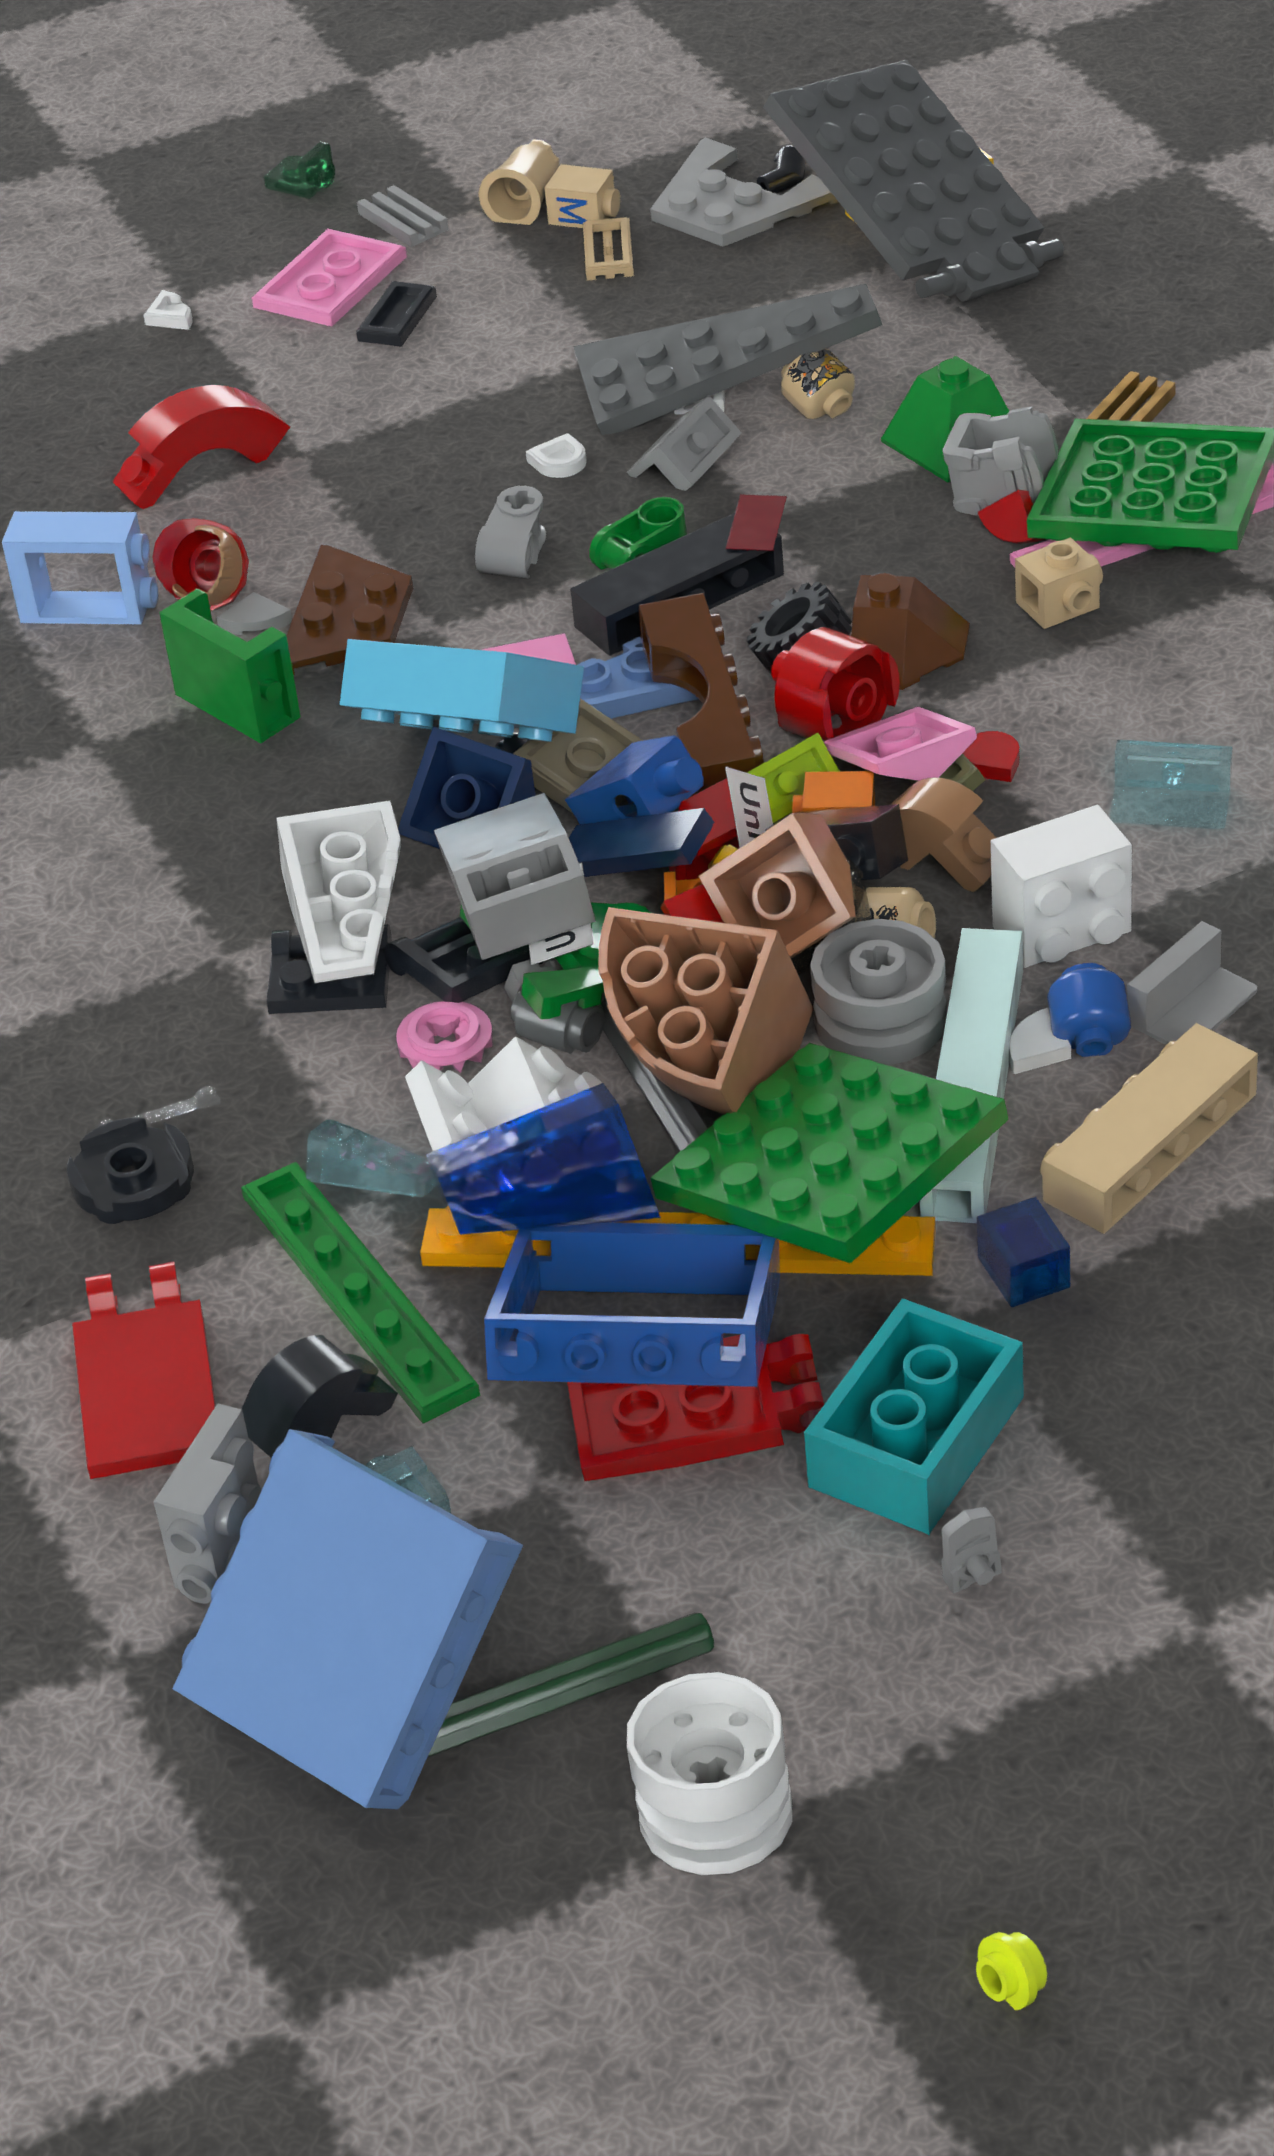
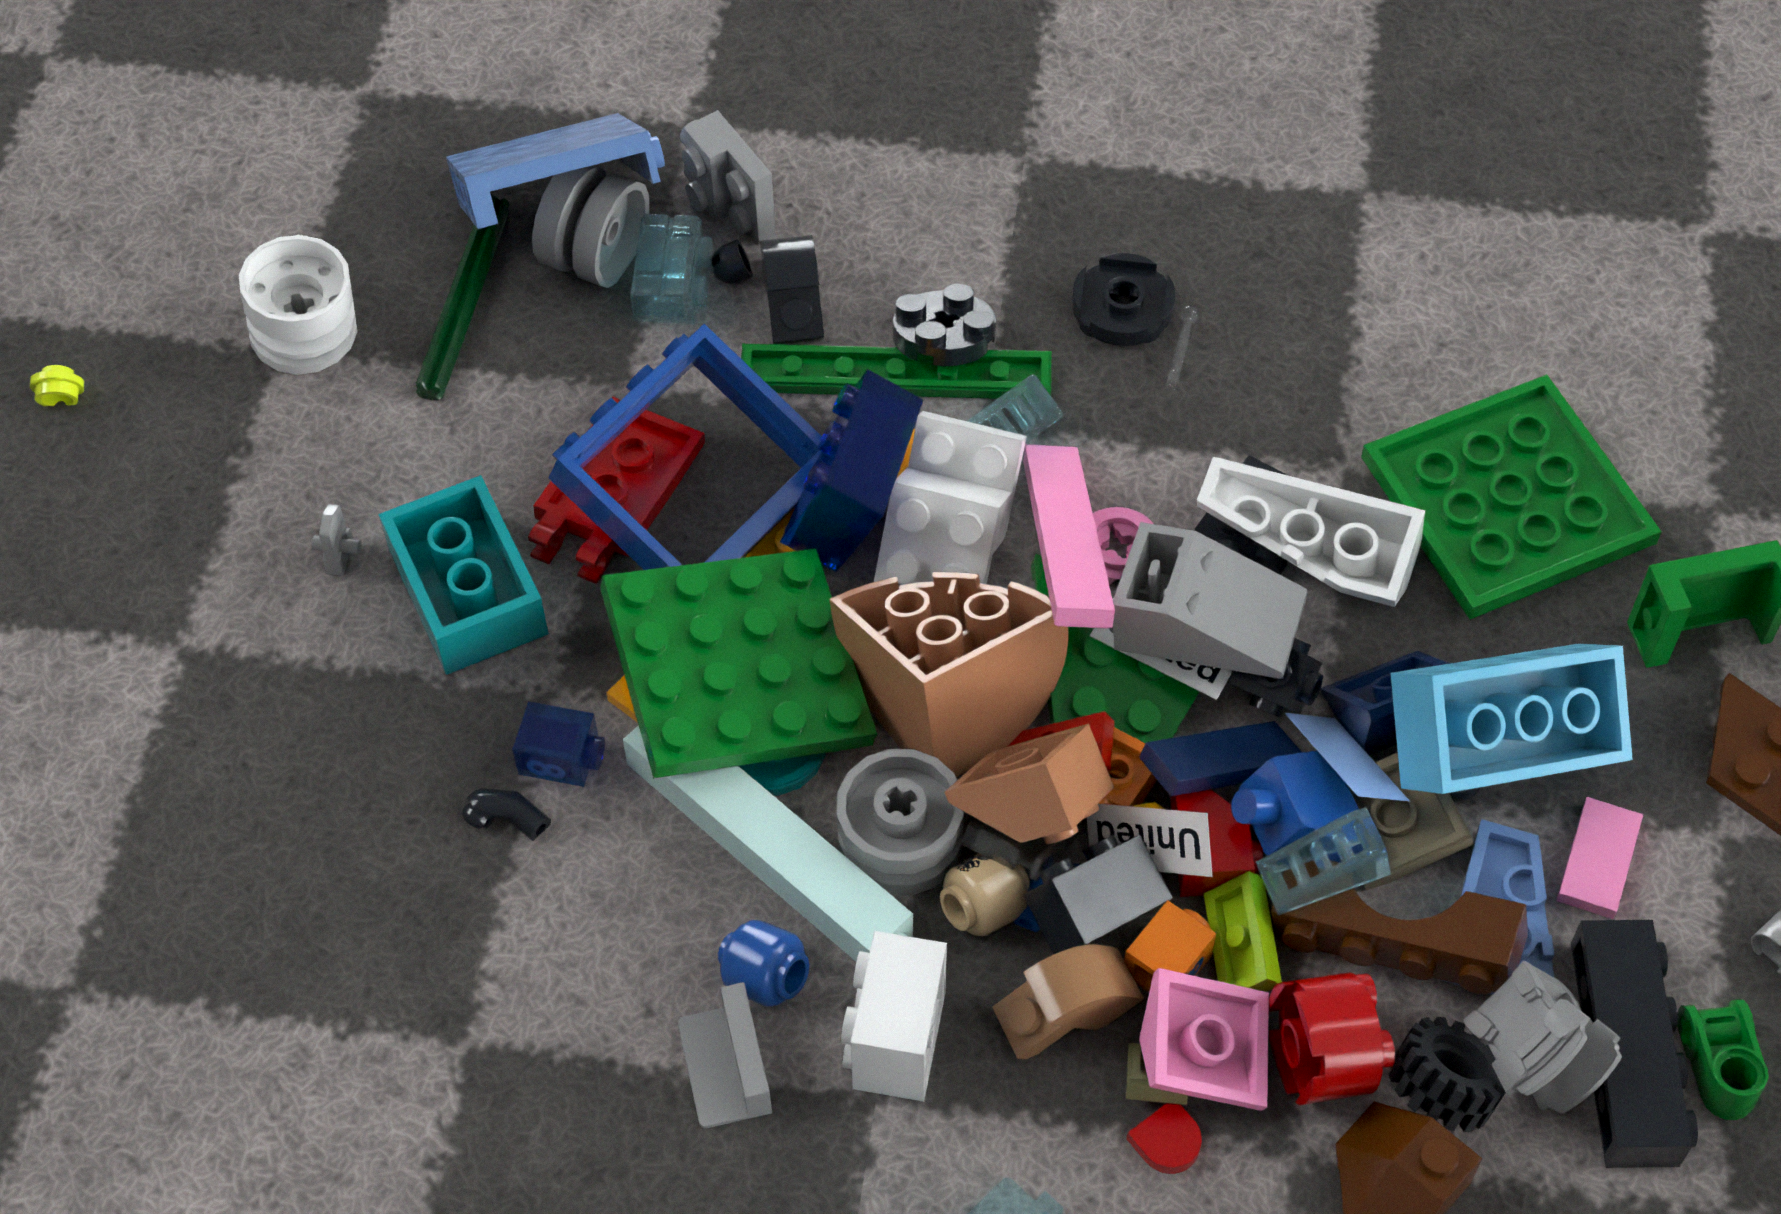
camera: 120 degrees right, 15 degrees up
(141, 1376) = (914, 228): red tile -> none
(173, 841) = (1511, 495): none -> green plate
(258, 1243) = (944, 325): none -> black plate
(503, 989) = (1068, 538): none -> bright pink tile
(578, 765) = (1347, 757): none -> light blue sticker
(670, 698) = (1333, 837): none -> clear light blue slope
(740, 579) = (1544, 1040): none -> light grey piece
(756, 522) = (1655, 1137): dark red sticker -> none
(1035, 1045) = (775, 908): white tile -> none
(1117, 1264) = (505, 804): none -> black arm
(1149, 1127) = (602, 913): tan brick -> none

